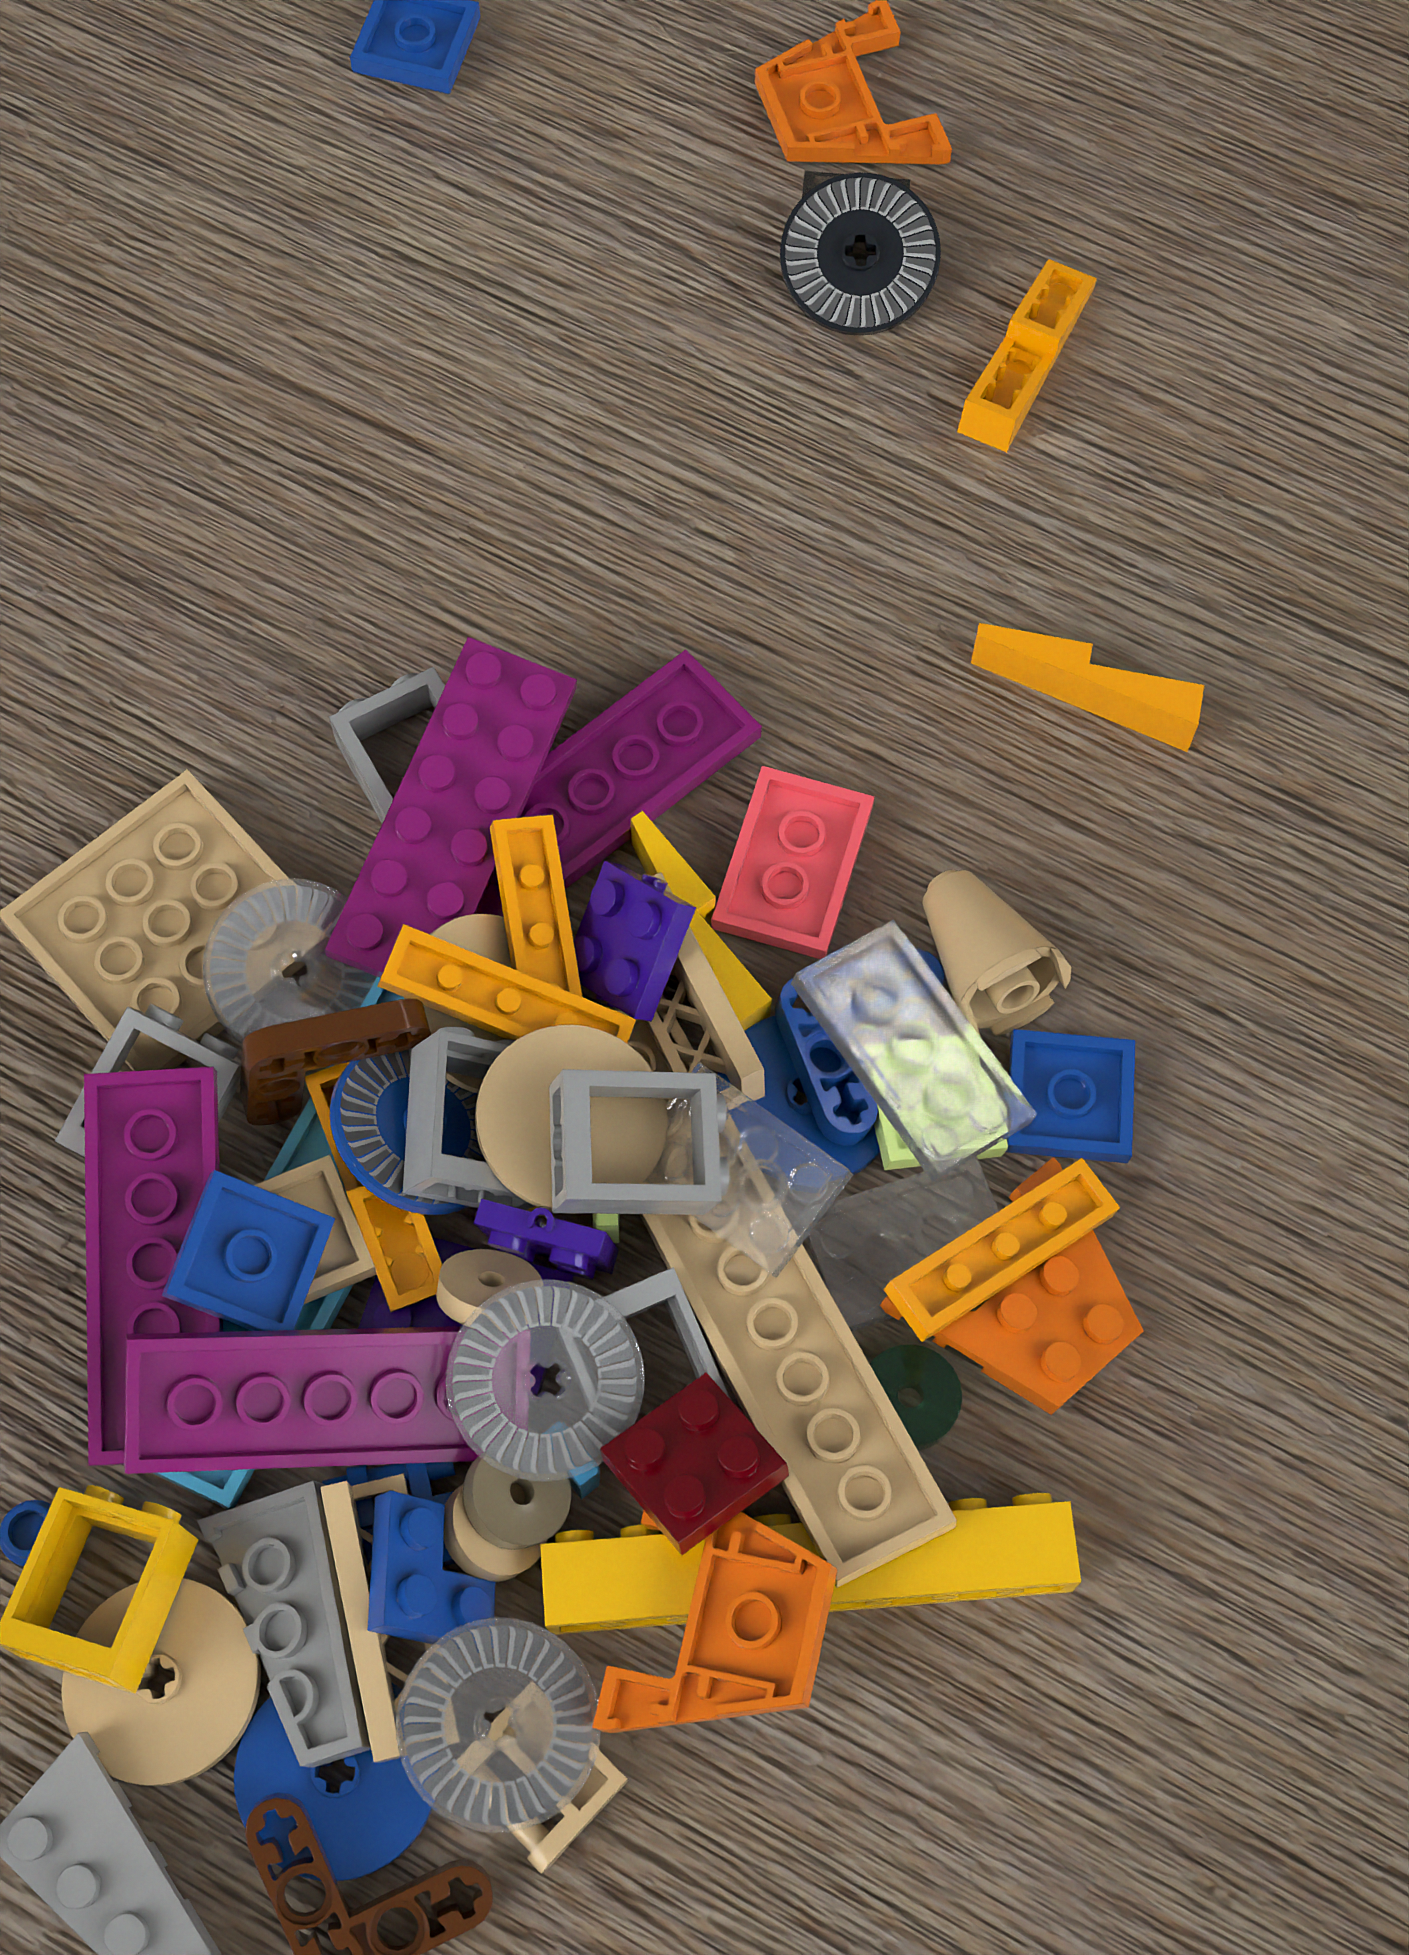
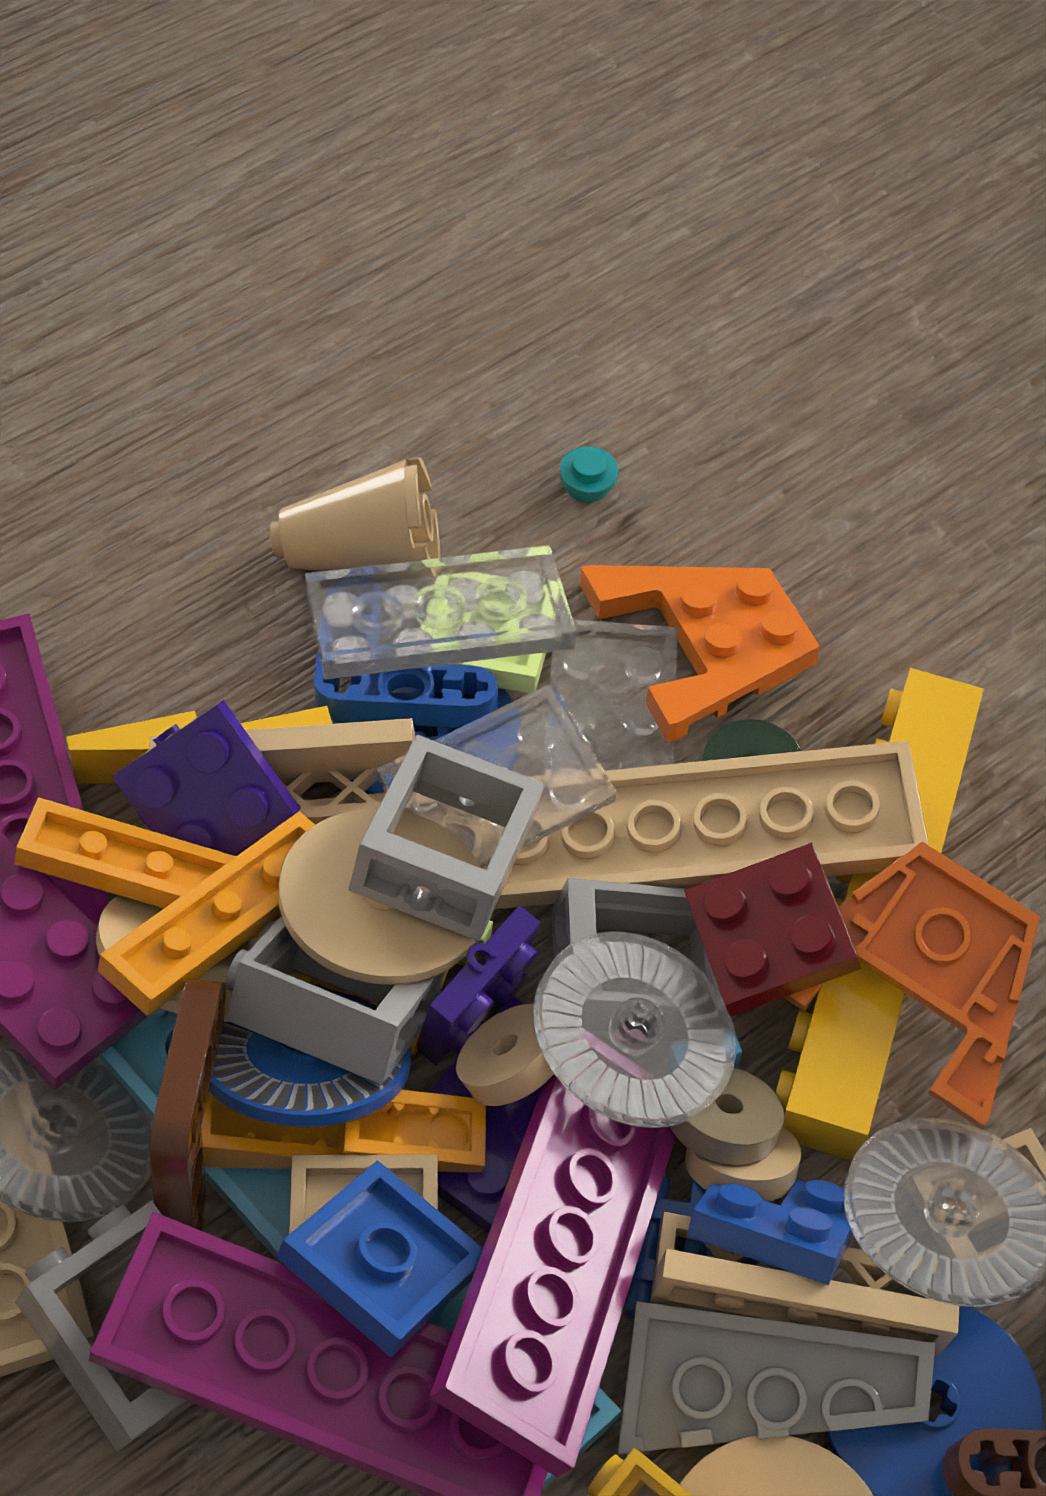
camera: 70 degrees left, 10 degrees down
(792, 863) = (182, 644): coral plate -> none
(1001, 1249) = (665, 623): light orange plate -> none
(1061, 669) = (127, 363): light orange slope -> none
(1079, 1093) = (533, 511): blue plate -> none
(1172, 1121) = (588, 473): none -> teal plate

